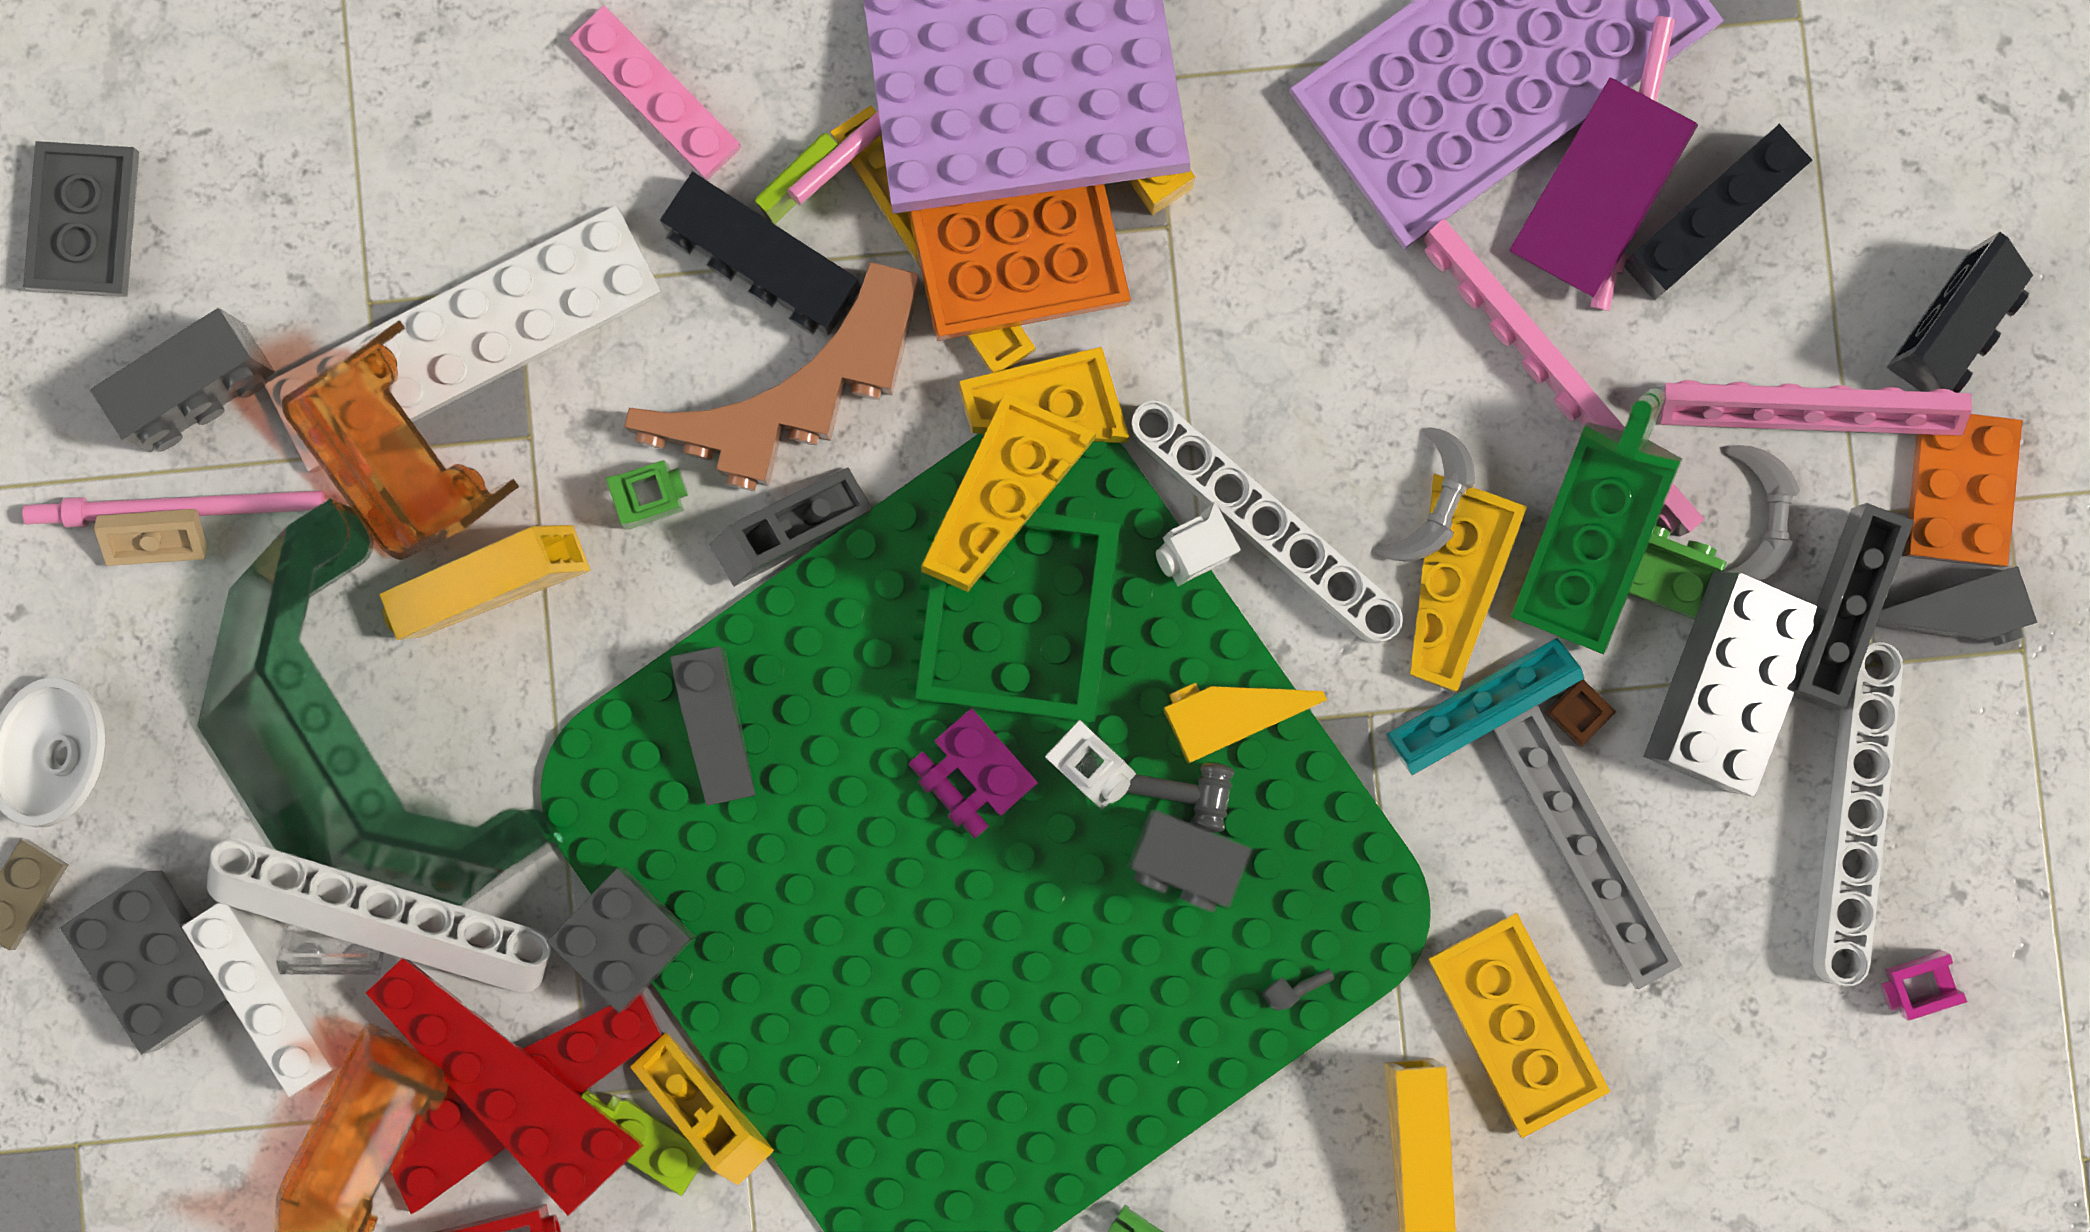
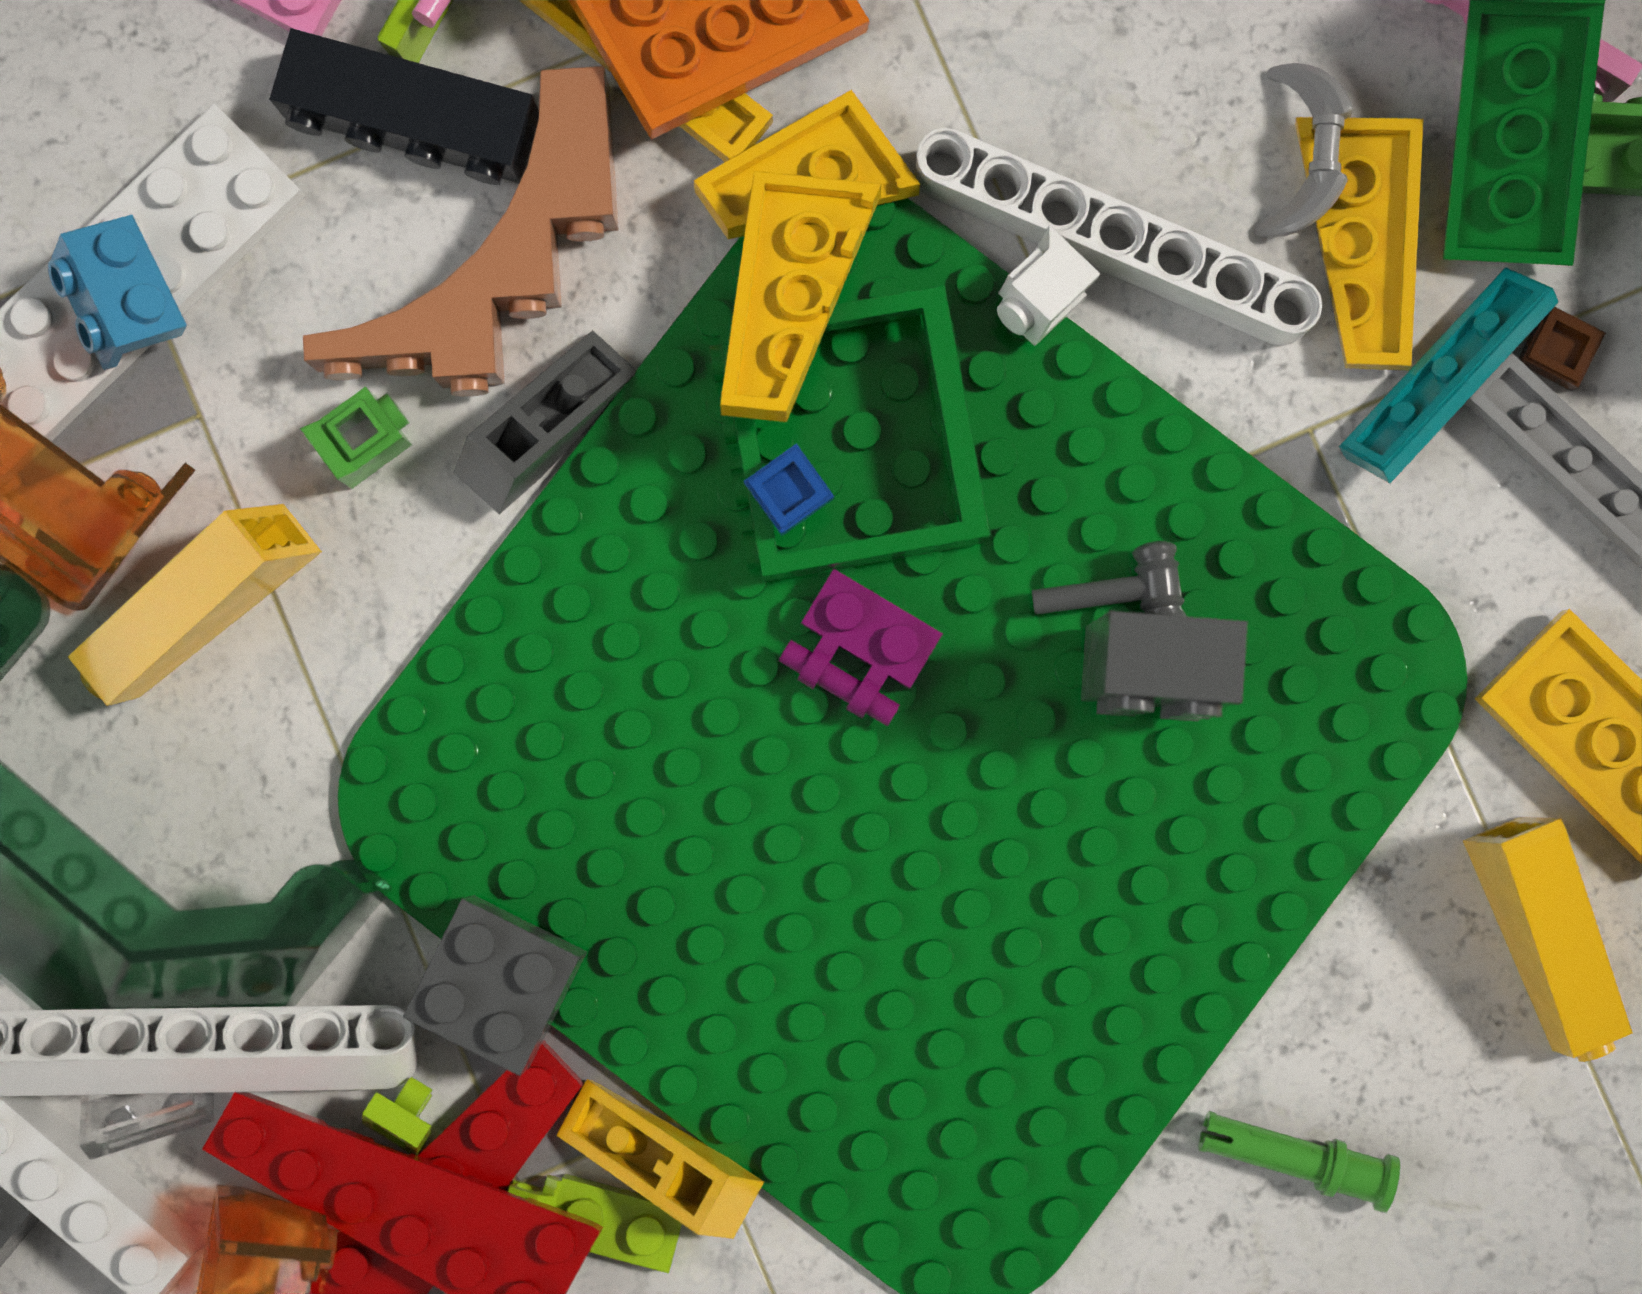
camera: 15 degrees left, 0 degrees up
(499, 329) = (114, 289): none -> dark azure bracket
(516, 1017) = (400, 1119): none -> lime tile
(713, 724) = (525, 686): dark grey slope -> none
(954, 641) = (789, 490): none -> blue tile
(1091, 765) = (1003, 591): white window -> none
(1224, 715) = (1143, 479): yellow slope -> none
(1282, 996) = (1321, 798): dark grey hand -> none

